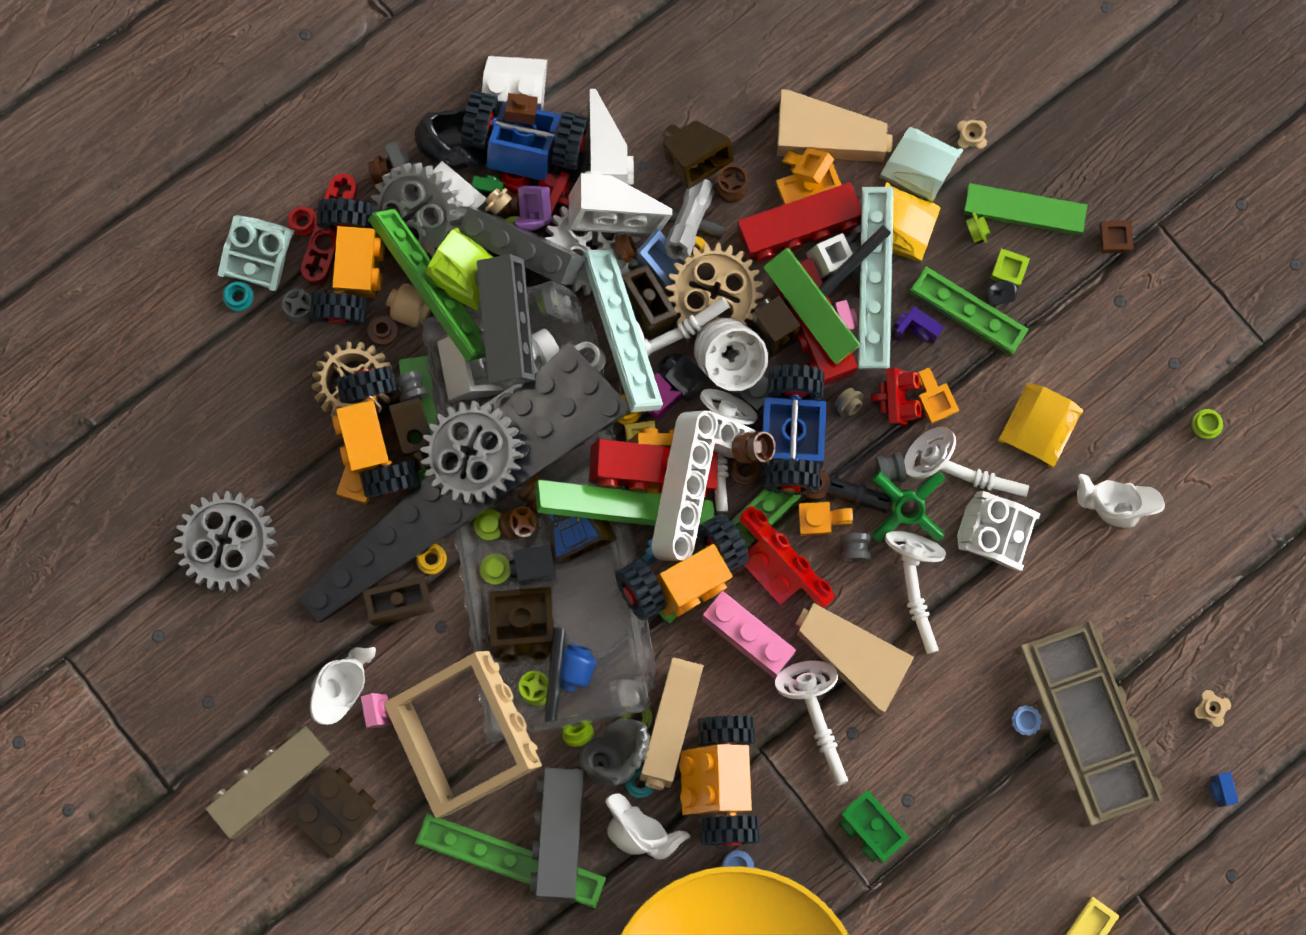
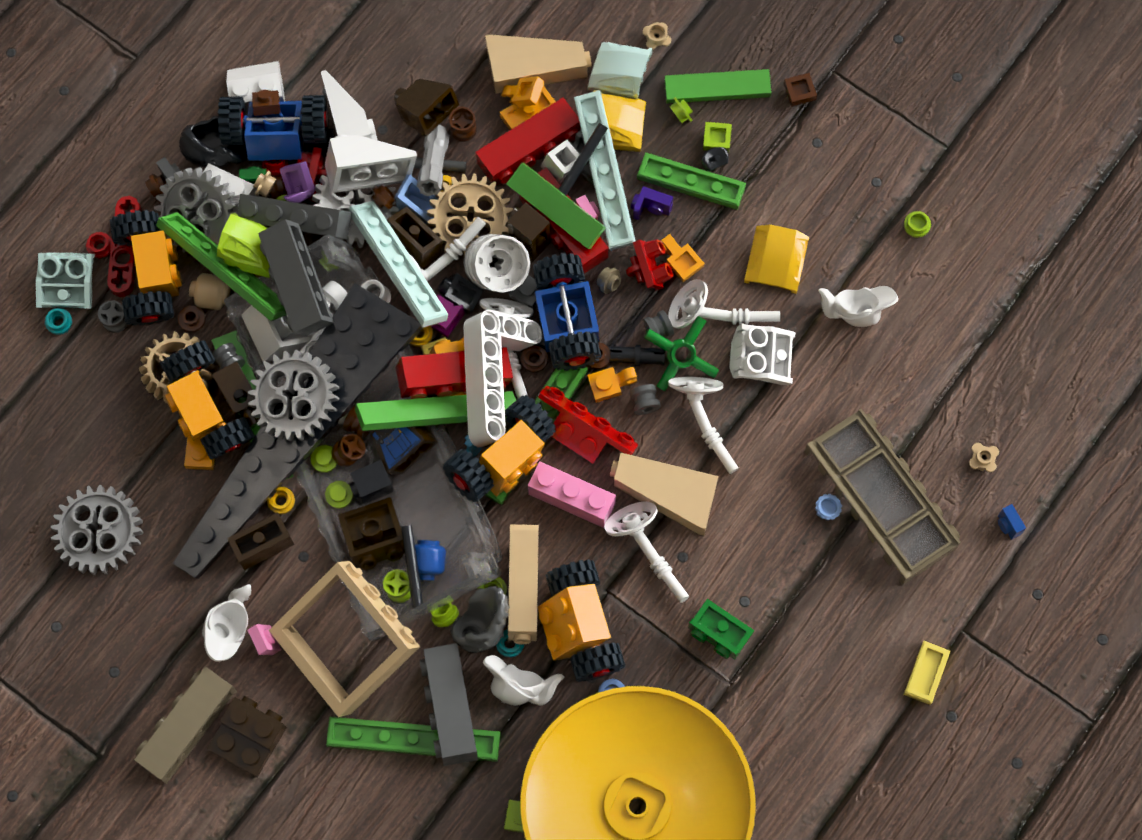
camera: 10 degrees left, 5 degrees down
(753, 447) = (535, 333): reddish brown wheel -> none

